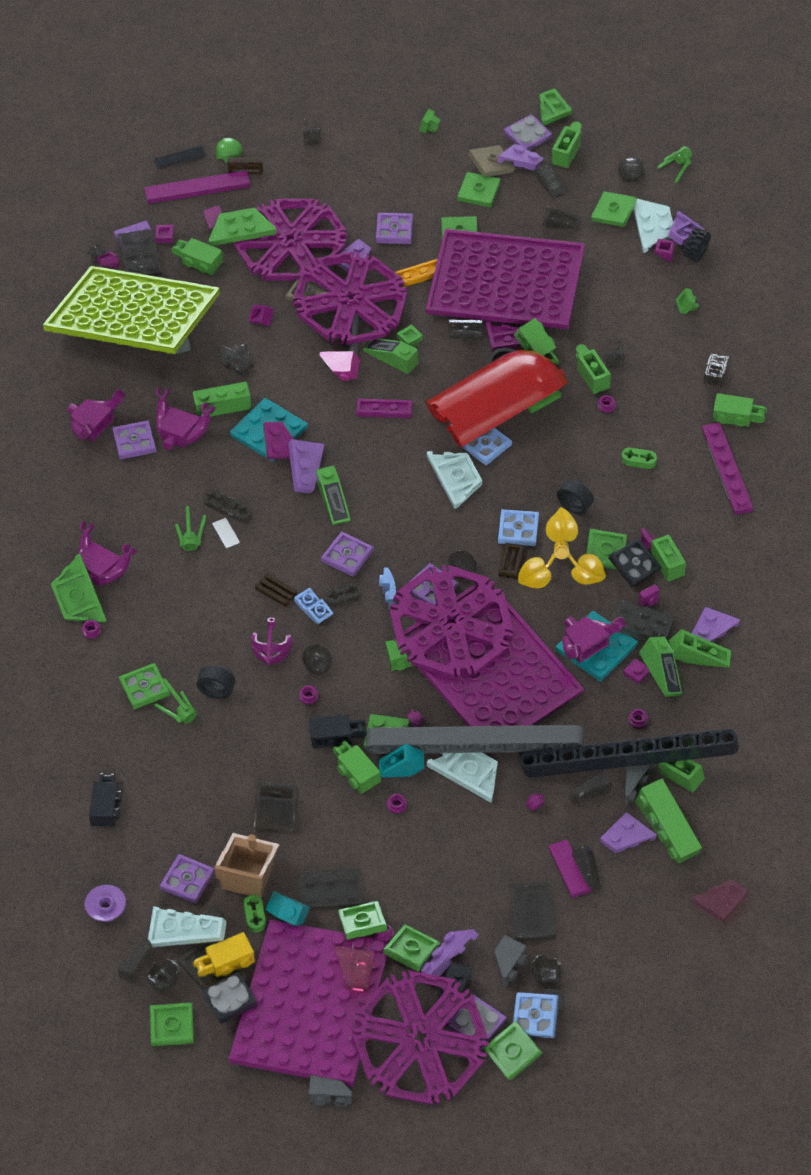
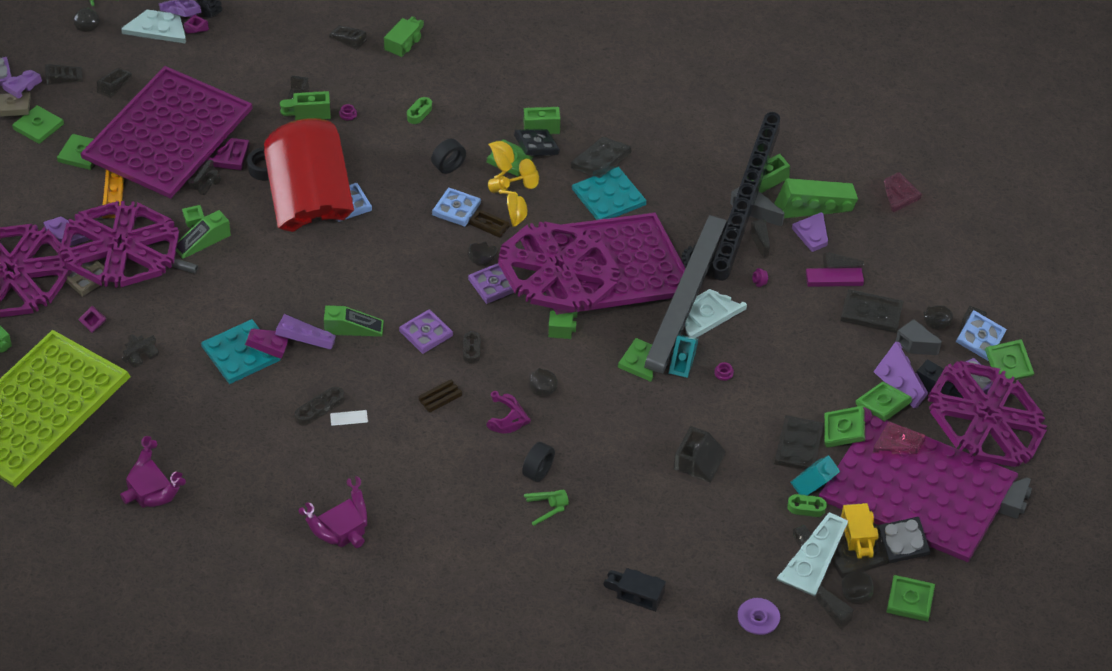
camera: 75 degrees left, 5 degrees down
(77, 594) = (374, 547): bright green wing -> none
(88, 625) = (419, 547): magenta plate -> none
(134, 440) = (195, 457): medium lavender piece -> none
(144, 686) = (510, 524): bright green piece -> none
(179, 426) = (201, 415): magenta torso -> none
(187, 878) = (751, 546): medium lavender piece -> none
(189, 540) = (348, 443): bright green plant -> none
(224, 398) = (187, 373): bright green brick -> none
(246, 864) = (764, 487): medium nougat piece -> none
(308, 690) = (576, 398): magenta plate -> none
(314, 608) = (479, 371): light blue slope -> none
(333, 730) = (627, 392): black brick -> none
(343, 364) = (197, 273): slope -> none
(356, 767) = (674, 387): bright green brick -> none
(384, 408) = (263, 261): magenta tile -> none
(388, 584) = (478, 309): light blue slope -> none
(394, 228) = (47, 193): medium lavender piece -> none
(415, 718) = (638, 331): magenta plate -> none
(456, 475) = (374, 231): light aqua wing -> none
(534, 338) = (252, 130): bright green brick -> none
(567, 145) = (33, 47): bright green brick -> none
(588, 636) = (608, 188): magenta torso -> none
(614, 209) = (126, 43): bright green plate -> none
(636, 671) = (647, 177): magenta plate -> none
(638, 713) = (698, 189): magenta plate -> none
(646, 539) = (512, 126): magenta slope -> none
(649, 596) = (576, 144): magenta plate -> none
(662, 665) = (650, 156): bright green slope -> none
(686, 301) = (264, 29): bright green tile -> none
(696, 650) = (645, 133): bright green slope -> none
(714, 624) = (621, 119): medium lavender wing -> none
(727, 468) = (459, 61): magenta plate -> none

